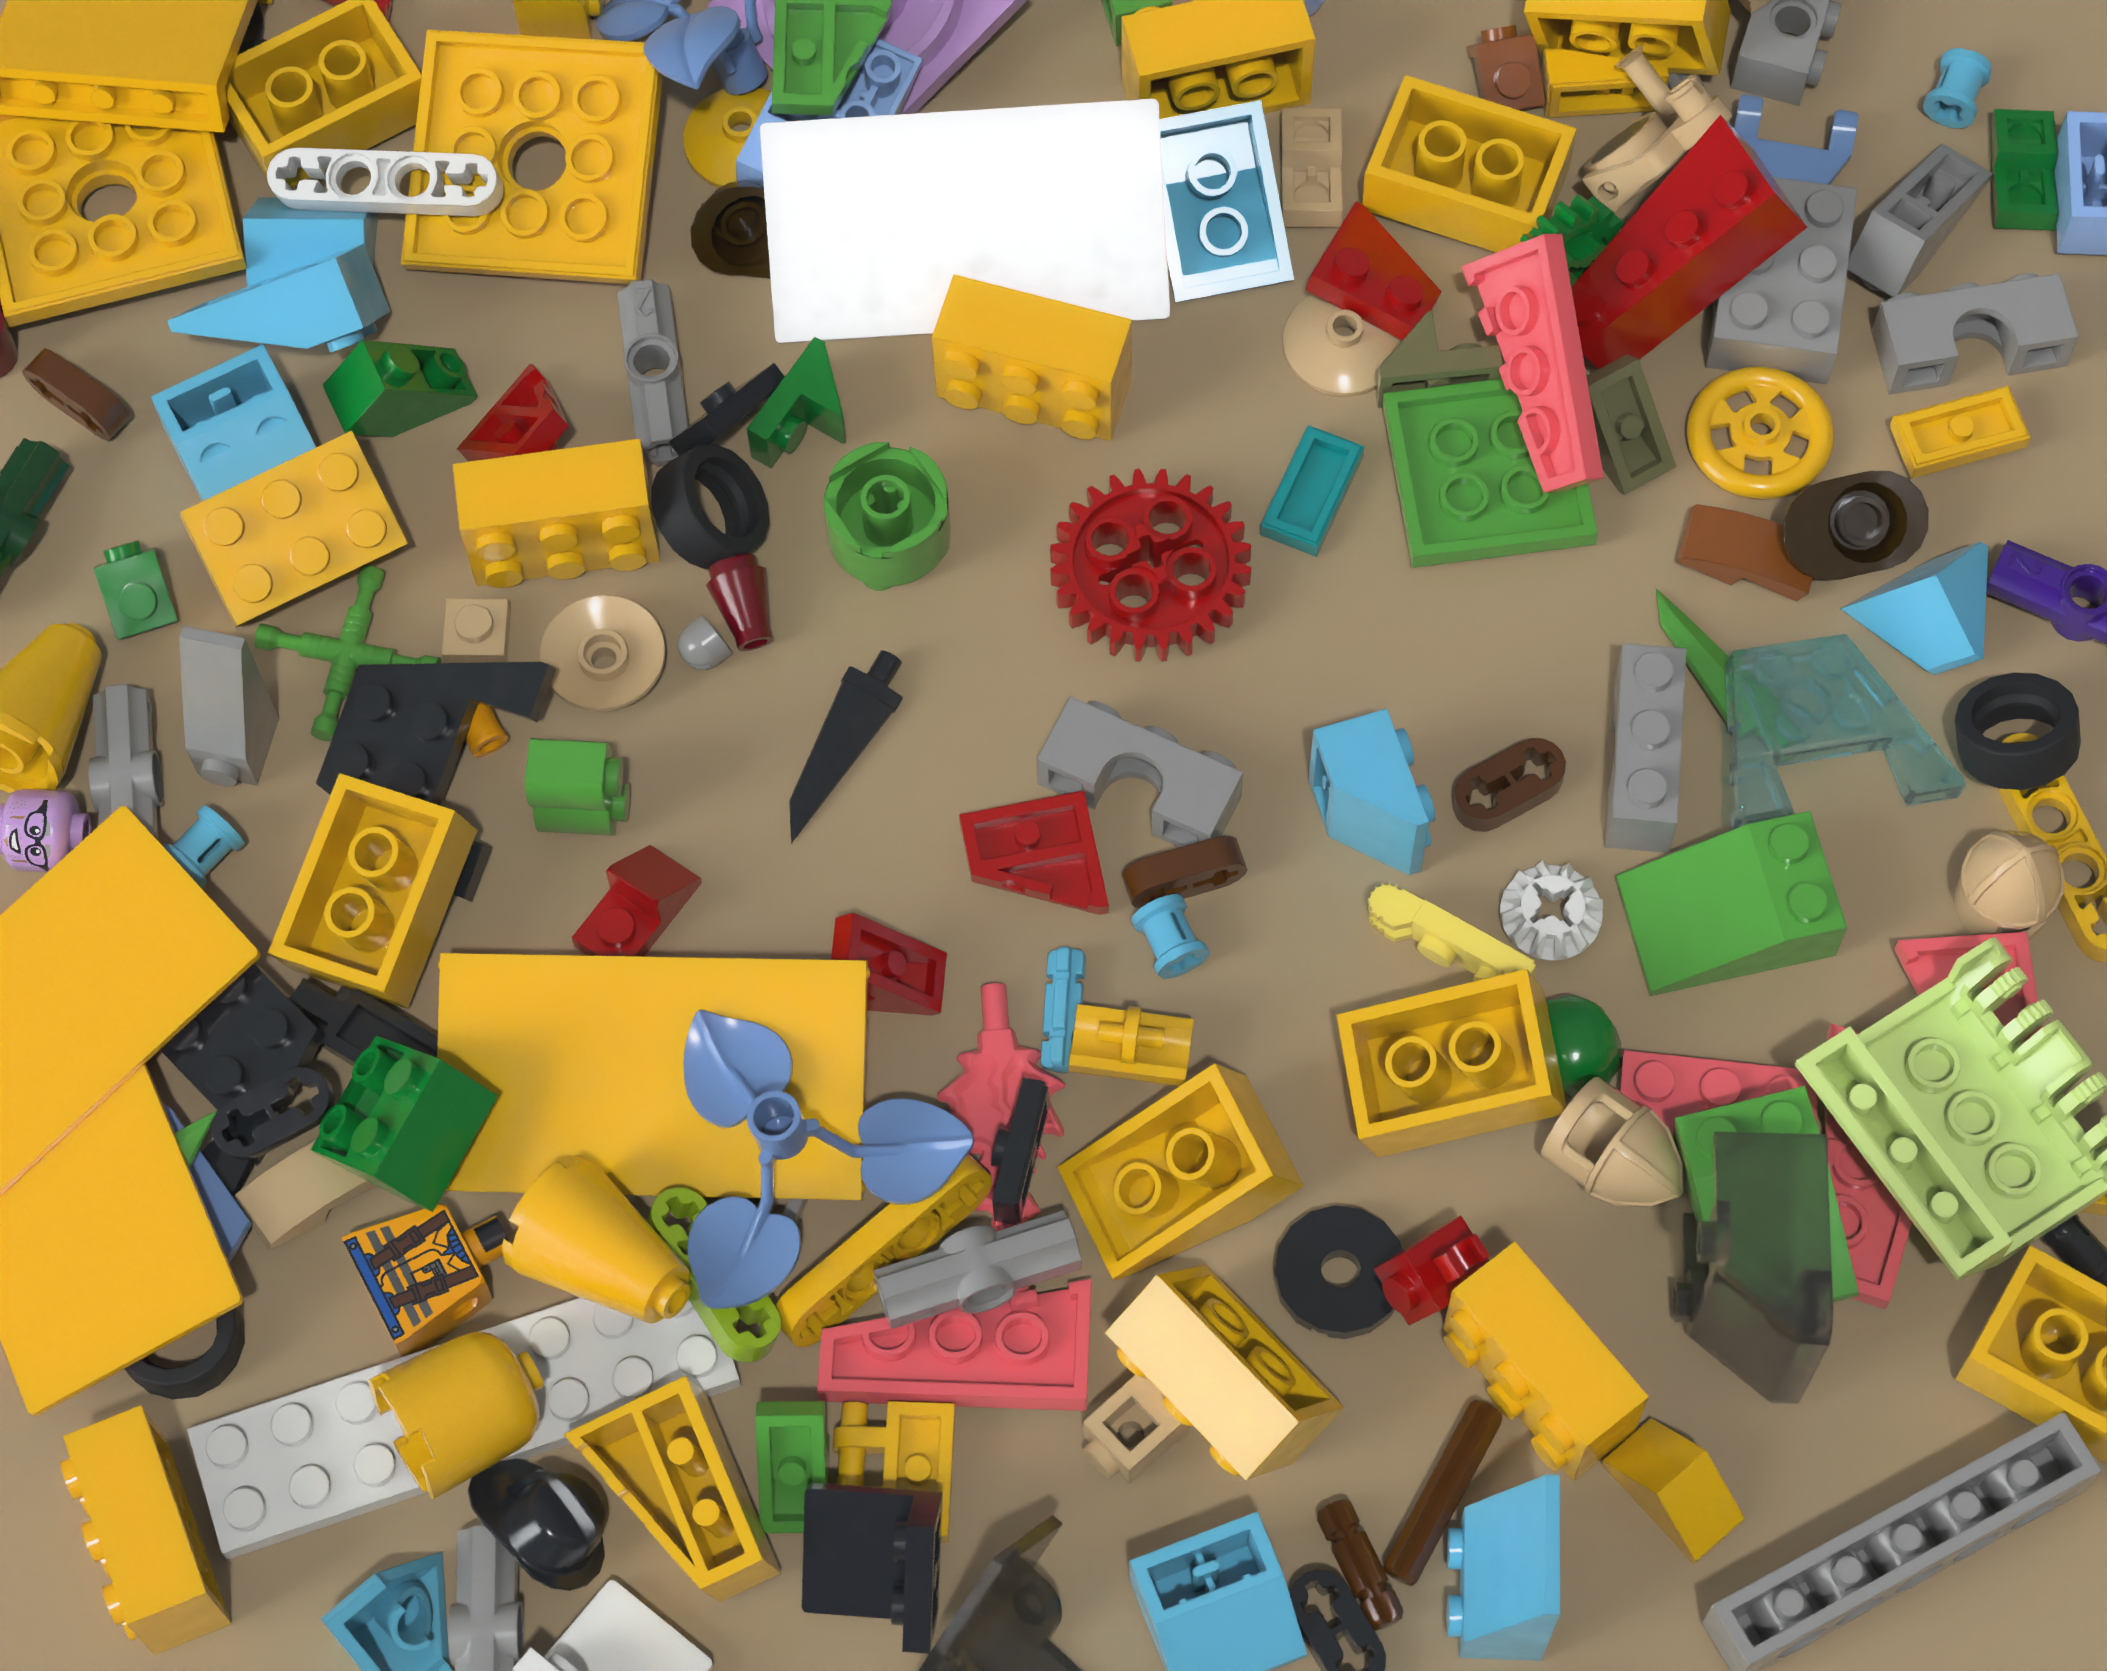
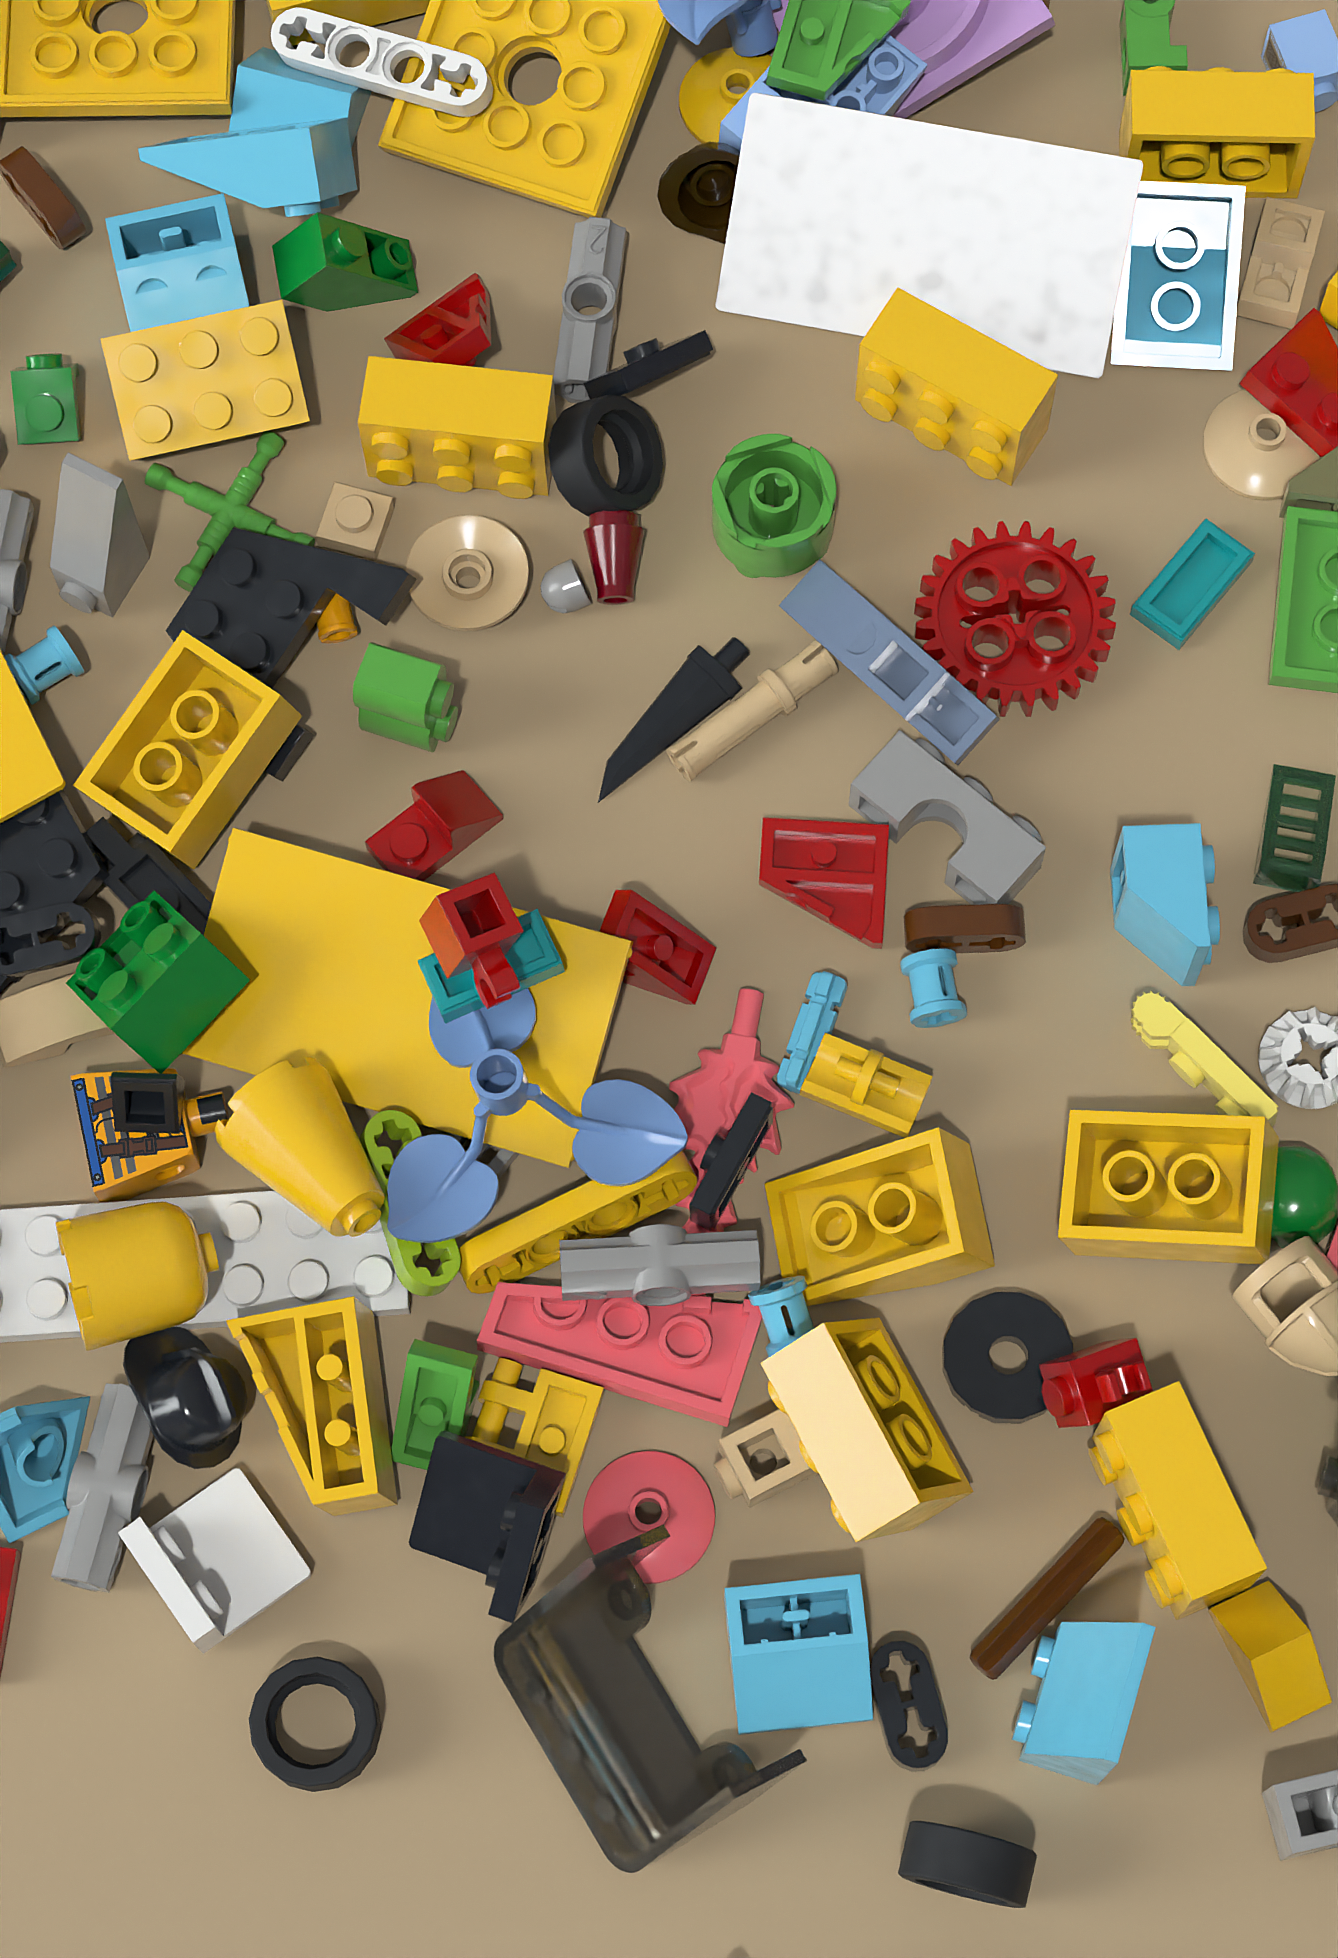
camera: 15 degrees right, 5 degrees up
(427, 1241) = (147, 1102): none -> black slope
(712, 986) = (474, 931): none -> red brick
(735, 1019) = (531, 958): none -> teal tile
(800, 399) = (725, 370): green slope -> none
(936, 696) = (772, 696): none -> tan pin
(1038, 1479) = (670, 1484): none -> coral dish
(1041, 635) = (889, 662): none -> sand blue slope
(1095, 1276) = (770, 1299): none -> medium azure bush
(1360, 1564) = (948, 1646): reddish brown axle -> none
(1479, 740) = (1285, 872): none -> clear green slope

